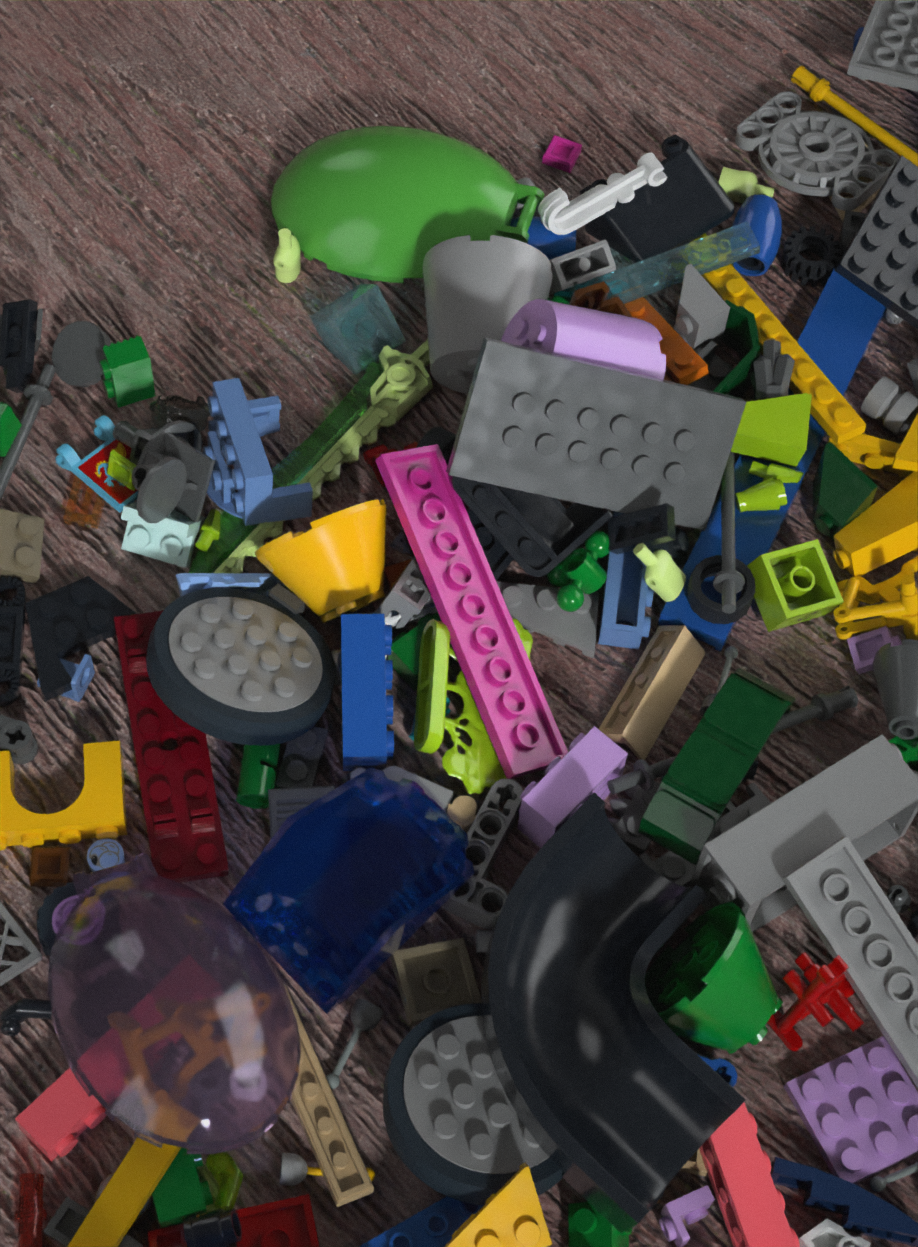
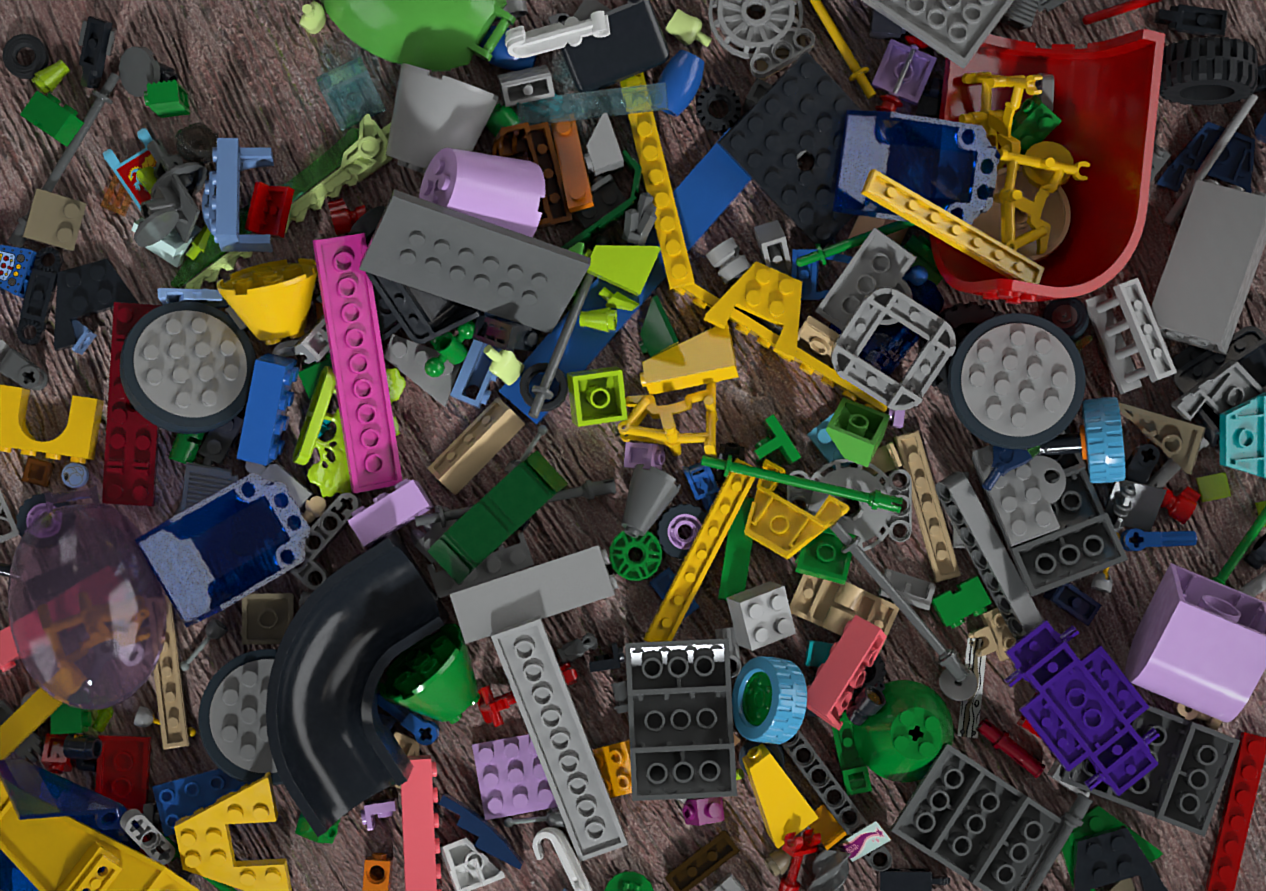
camera: 25 degrees right, 25 degrees up
(297, 461) = (269, 210): none -> red bracket

